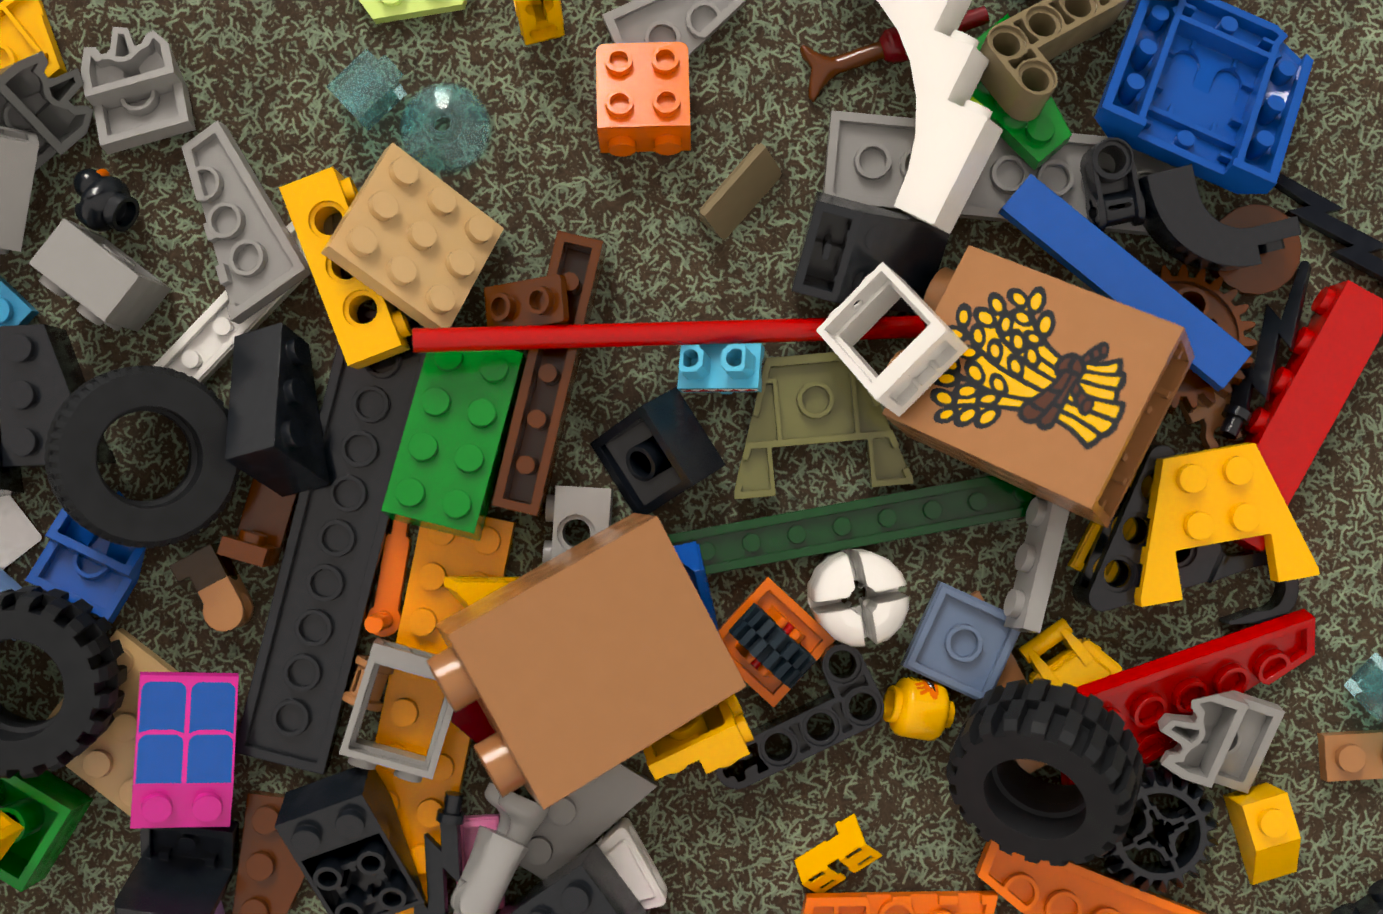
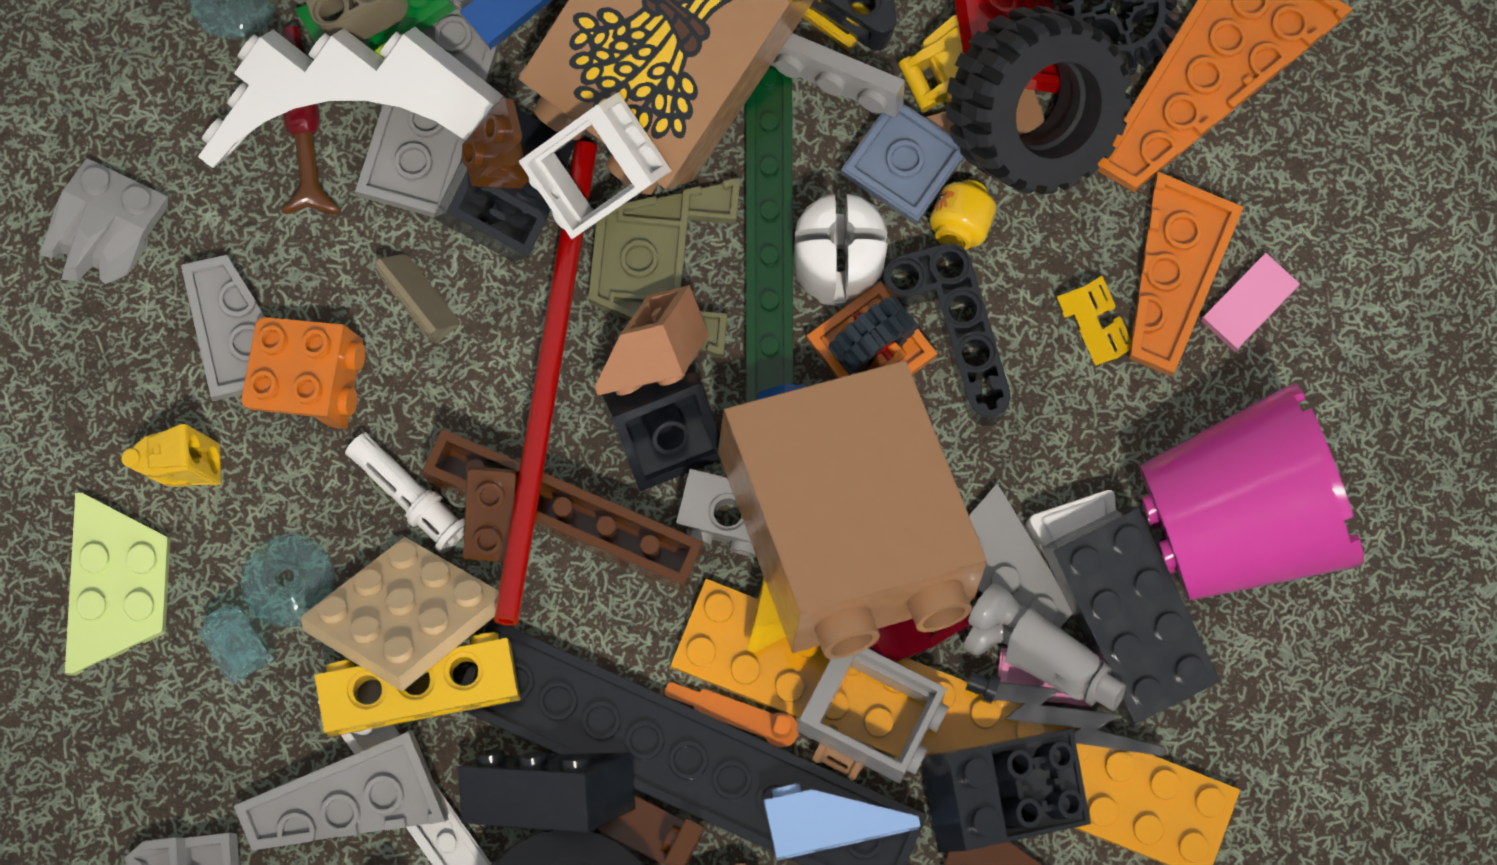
camera: 80 degrees left, 10 degrees down
(291, 678) = (822, 821): none -> light blue slope
(454, 440) = (613, 615): green brick -> none
(535, 238) = (421, 506): none -> white pin
(713, 737) = (953, 408): yellow plate -> none
(720, 368) = (589, 339): medium azure hips -> none
(724, 434) = (655, 343): none -> nougat slope
(886, 236) = (495, 149): none -> reddish brown bracket

